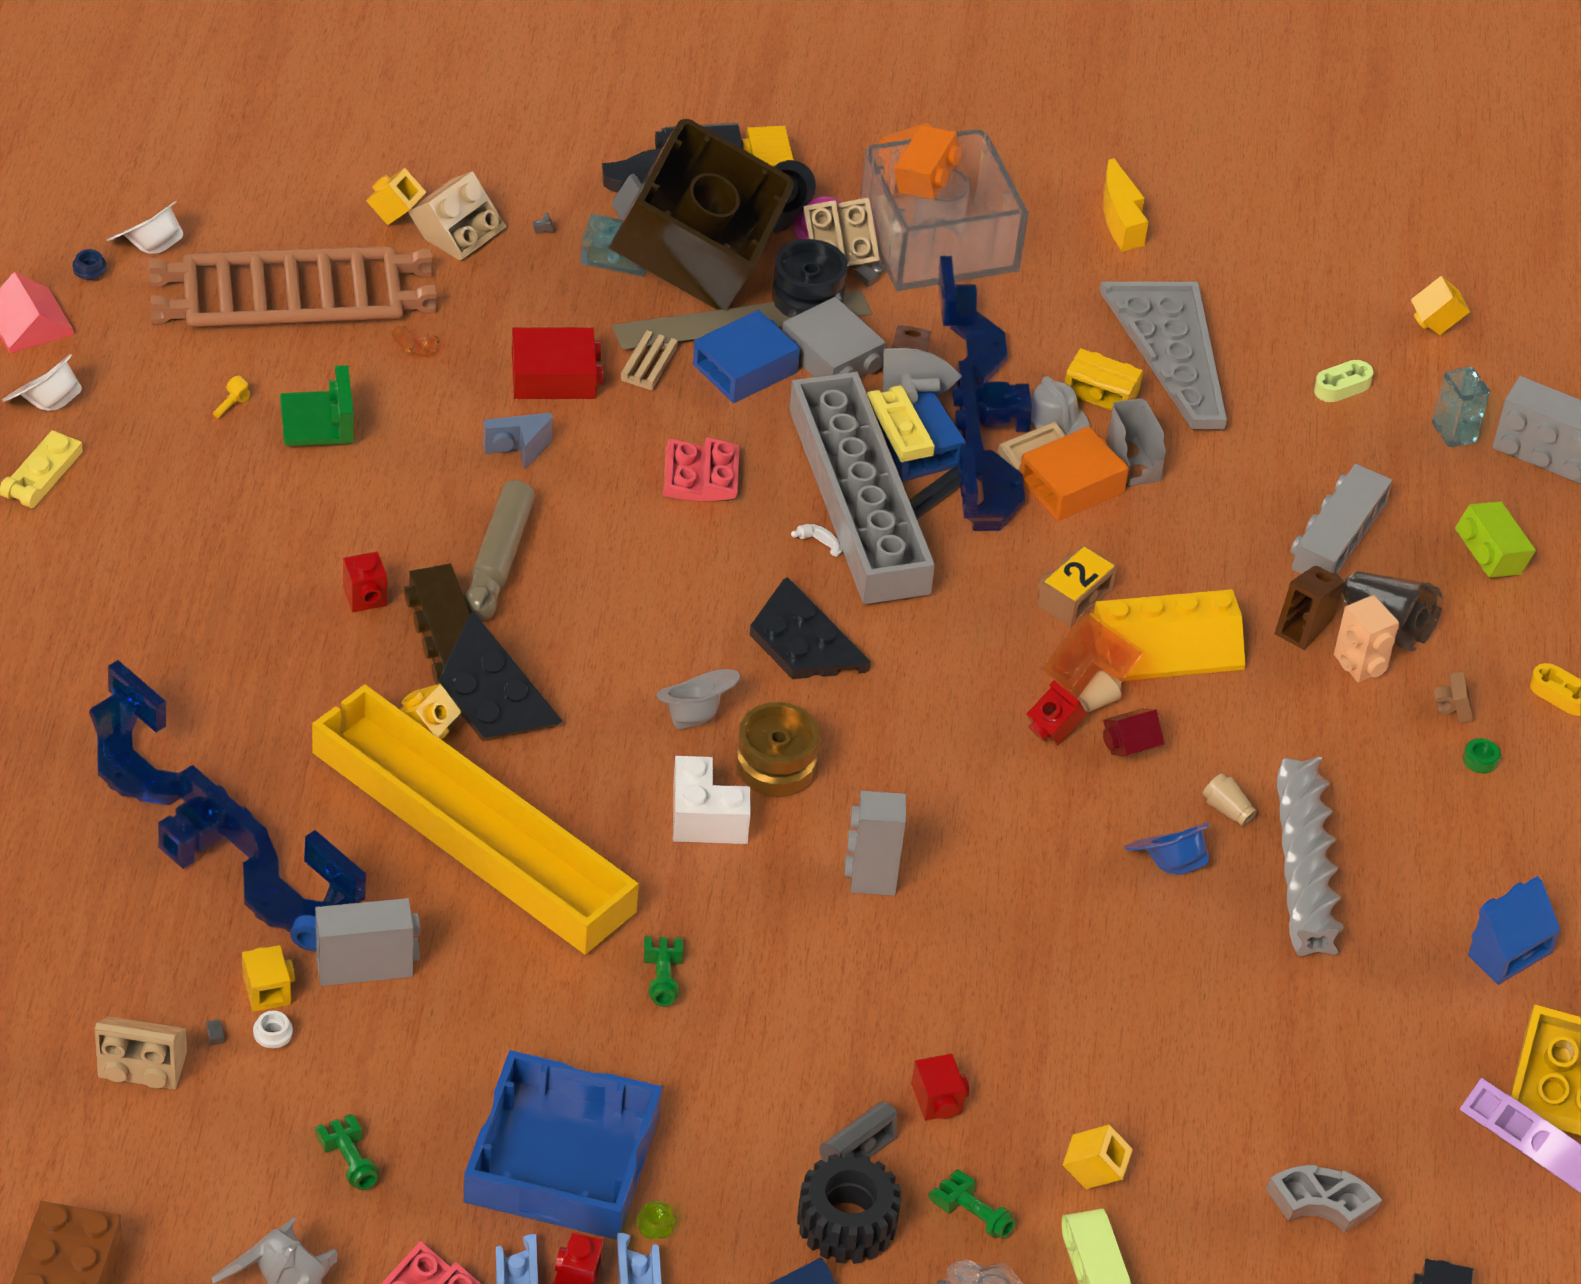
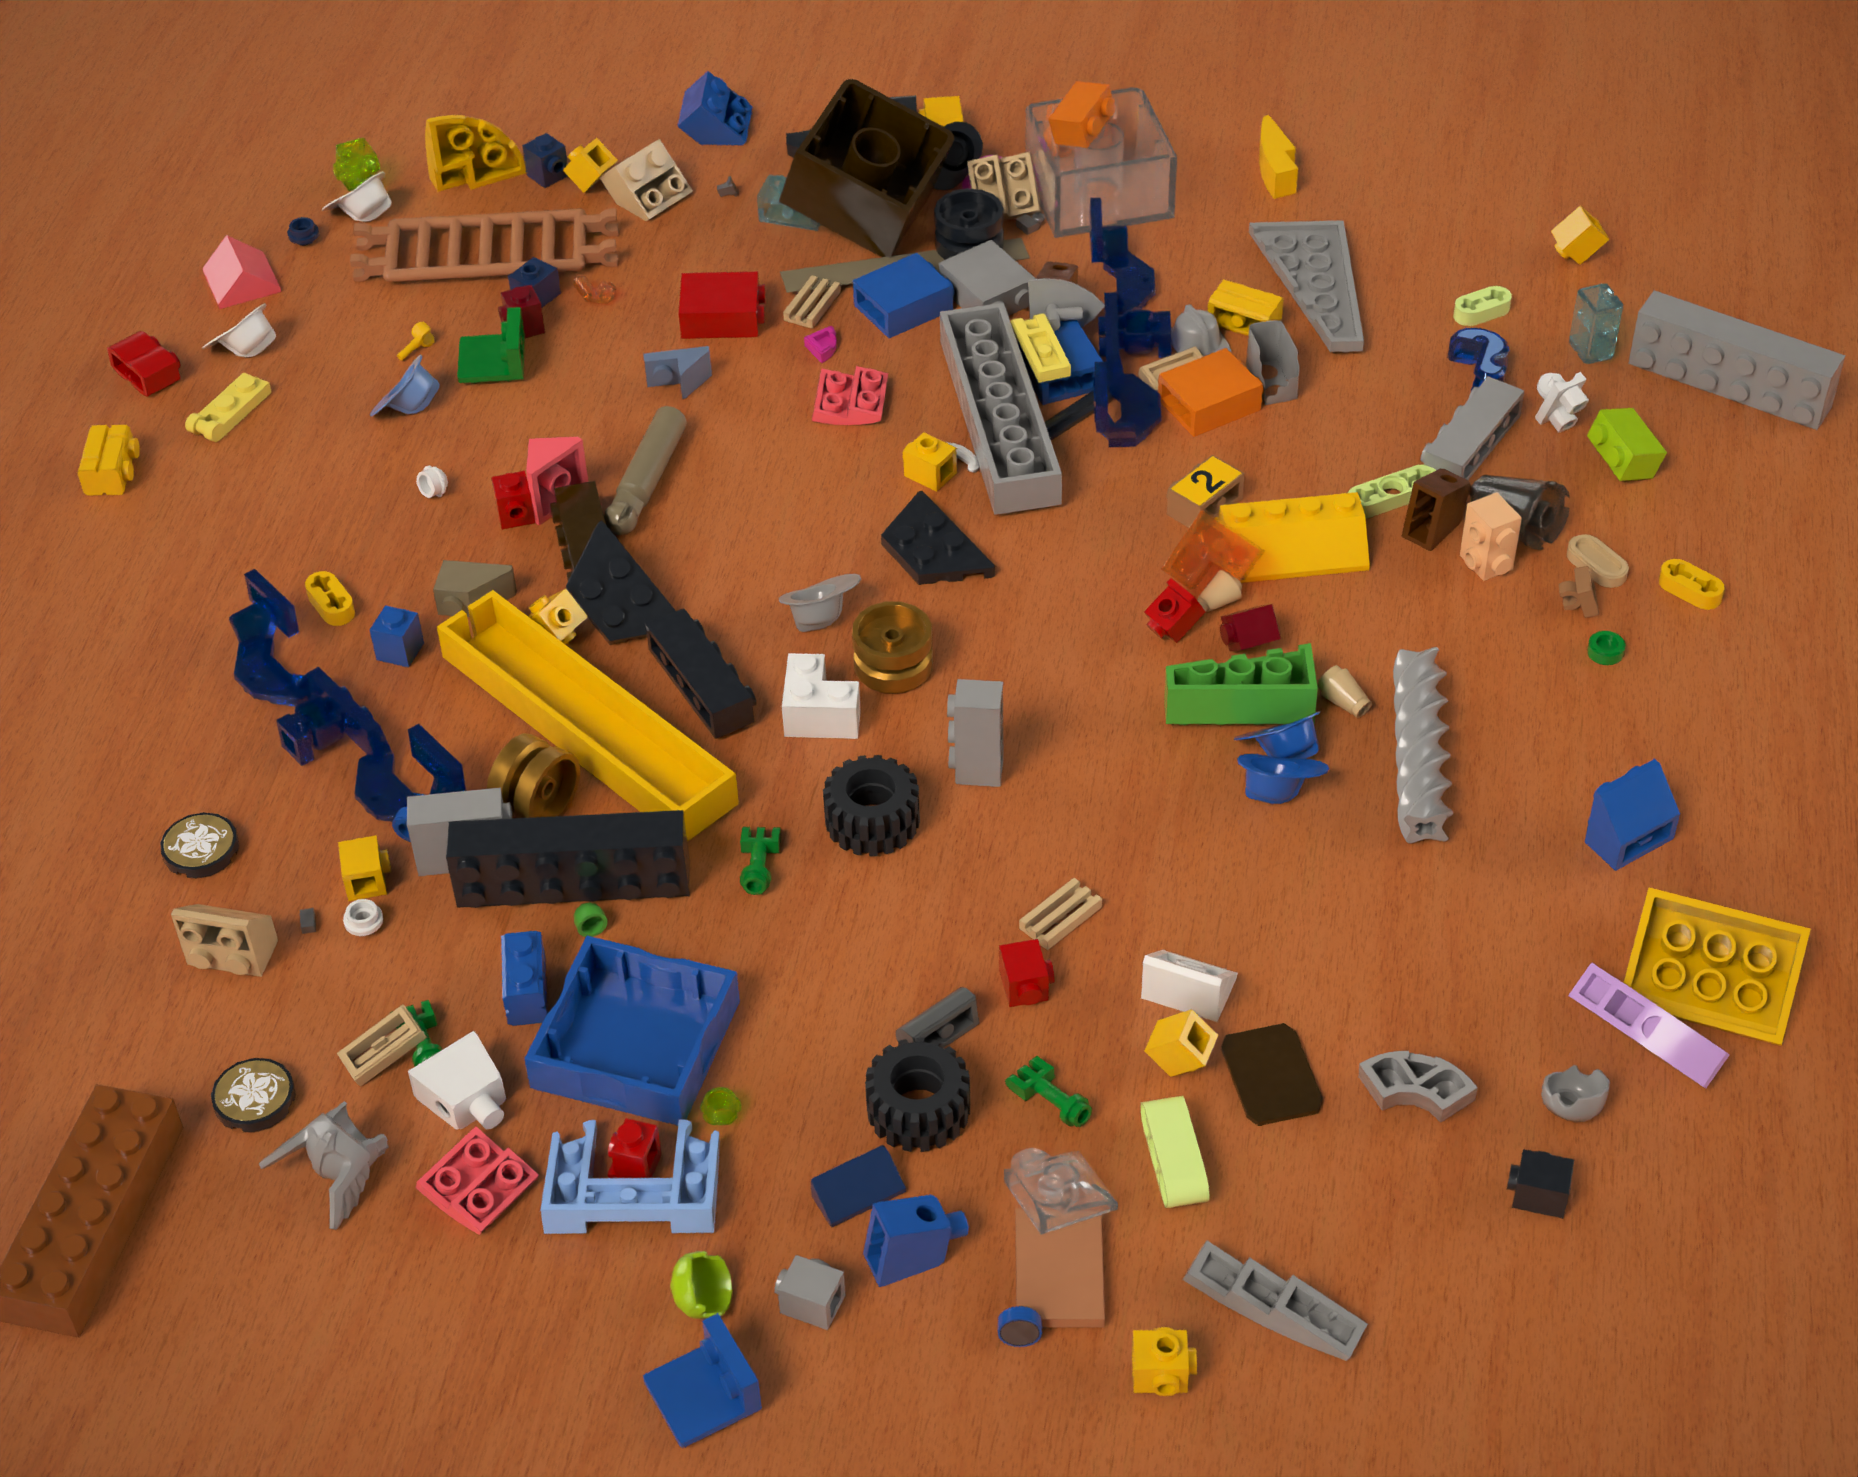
camera: 10 degrees right, 0 degrees up
(91, 952) = (199, 845): none -> tile
(139, 188) = (355, 163): none -> clear neon green brick
(189, 1210) = (253, 1094): none -> tile
(190, 683) = (324, 601): none -> yellow beam
(236, 456) = (412, 392): none -> medium blue piece
(264, 180) = (469, 153): none -> yellow brick
(265, 730) = (397, 636): none -> blue brick
(274, 559) = (432, 481): none -> white plate
(318, 1164) = (384, 1049): none -> tan tile
(333, 676) = (466, 582): none -> dark tan slope
(345, 188) = (545, 160): none -> dark blue brick
(346, 353) = (530, 309): none -> dark red brick
(352, 335) = (541, 276): none -> dark blue brick
(399, 1199) = (461, 1084): none -> white torso
(408, 547) = (553, 465): none -> coral slope
(436, 887) = (535, 777): none -> pearl gold wheel
(447, 1092) = (524, 978): none -> blue brick
(479, 970) = (568, 858): none -> black brick
(503, 1032) = (590, 919): none -> bright green hinge
(521, 136) = (714, 113): none -> blue slope
(584, 774) = (701, 673): none -> black brick
(664, 408) = (822, 343): none -> dark pink tile
(769, 938) = (871, 783): none -> black tyre
(792, 545) = (929, 461): none -> yellow brick
(975, 1002) = (1055, 909): none -> tan tile
(1096, 1098) = (1186, 984): none -> white slope
(1132, 797) = (1243, 690): none -> bright green wedge
(1171, 890) = (1275, 778): none -> blue piece
(1182, 1186) = (1271, 1074): none -> dark brown piece
(1272, 574) = (1377, 501): none -> yellowish green beam
(1346, 429) = (1480, 347): none -> clear blue animal
(1429, 490) = (1560, 400): none -> white hips
(1463, 655) = (1604, 564): none -> tan tile
(1470, 1206) = (1574, 1094): none -> light grey hair

